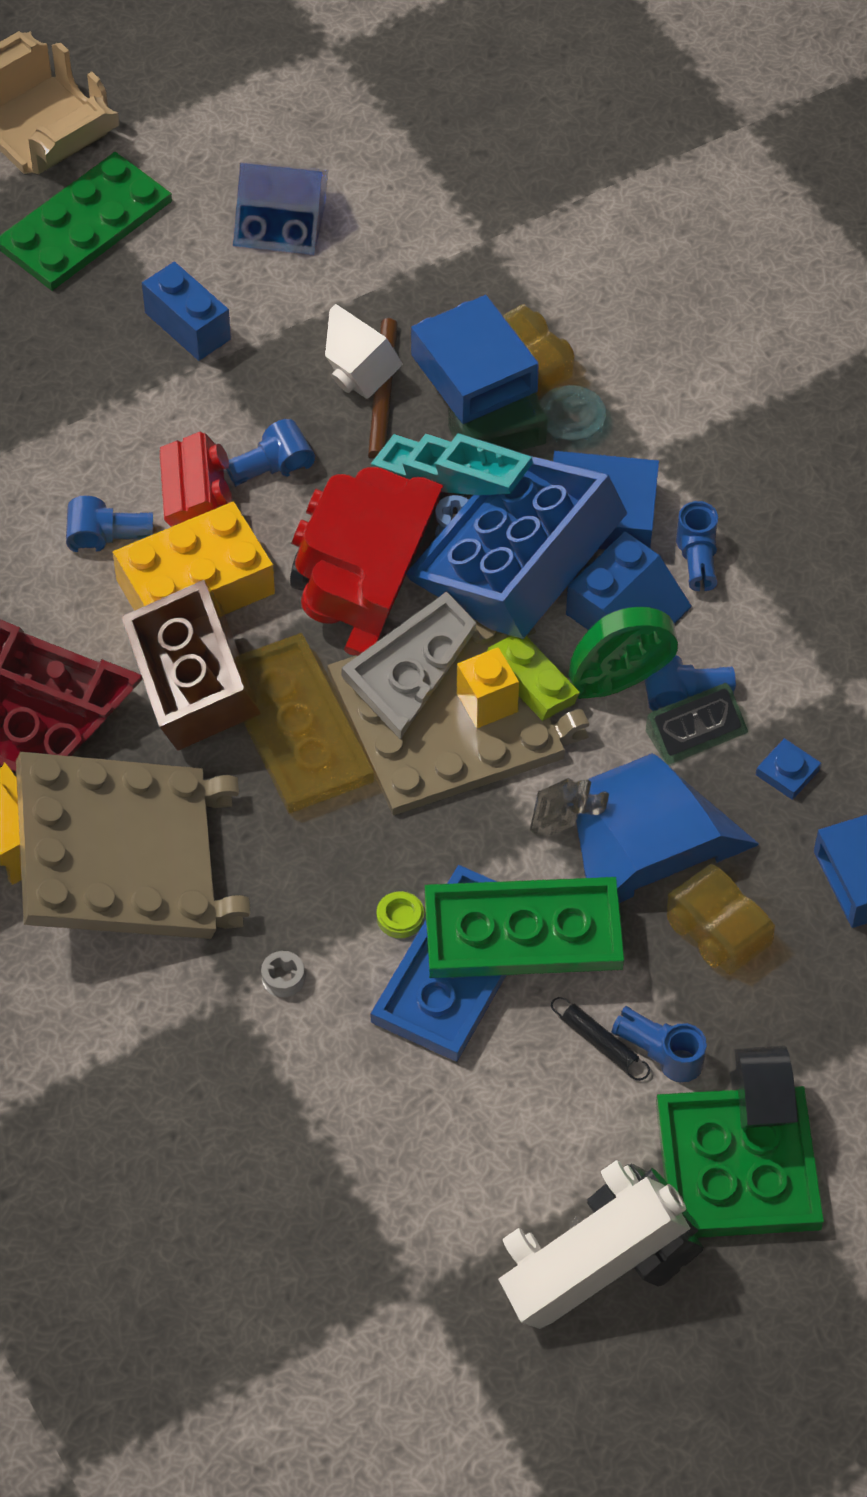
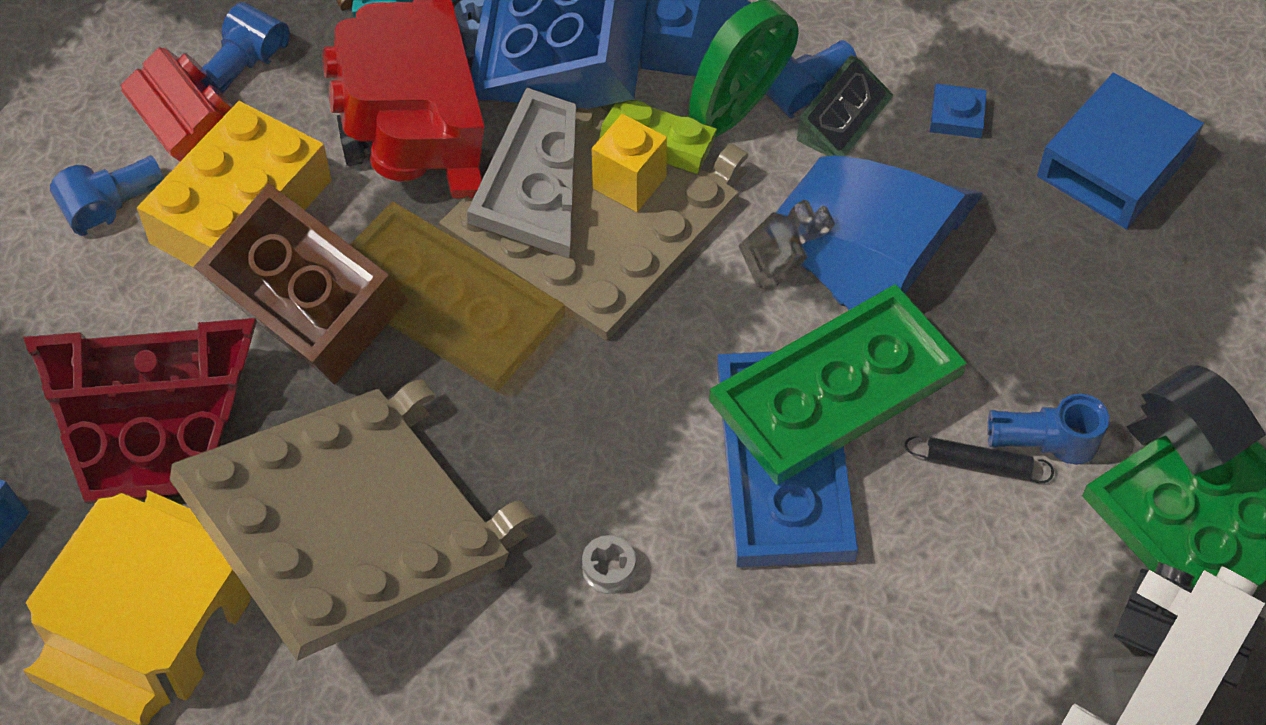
camera: 30 degrees left, 0 degrees up
(400, 914) = (687, 437): lime tile -> none
(720, 919) = (1009, 279): clear yellow brick -> none

